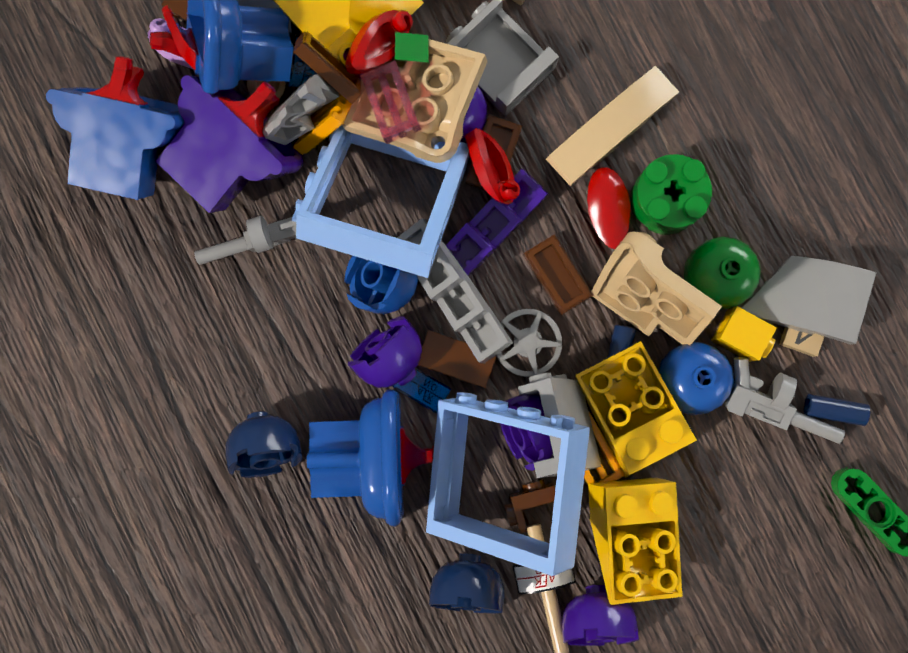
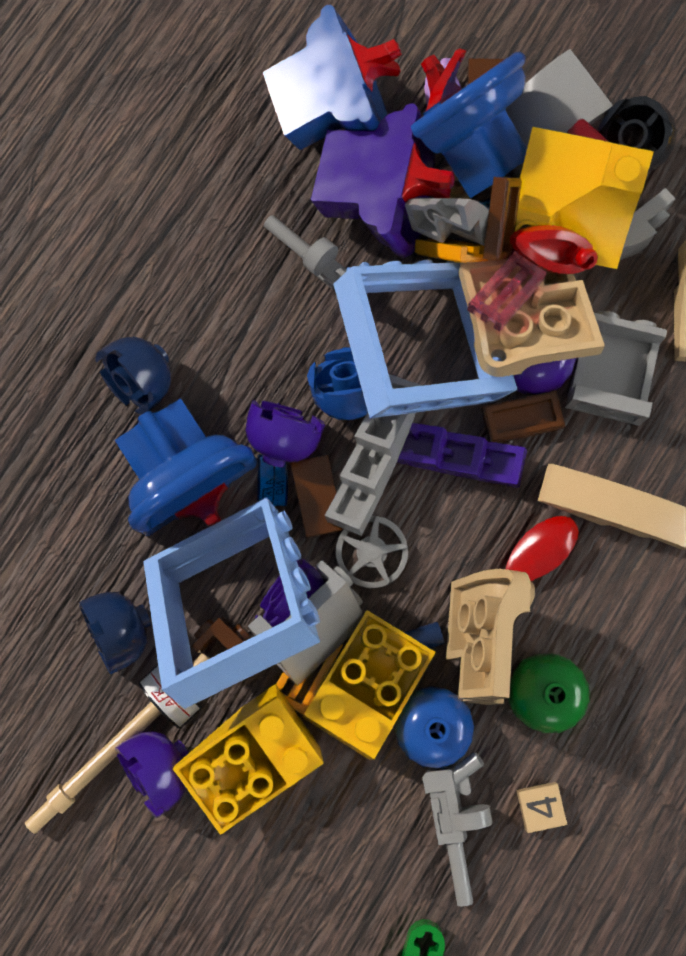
camera: 60 degrees right, 5 degrees down
(411, 47) = (568, 280): green sticker -> none
(492, 166) = (508, 419): red arm -> none
(557, 274) = (450, 541): reddish brown tile -> none
(683, 178) = (612, 602): green brick -> none
(745, 334) = (504, 750): yellow brick -> none
(815, 298) = (580, 796): light grey slope -> none
(836, 410) = (488, 884): dark blue axle -> none

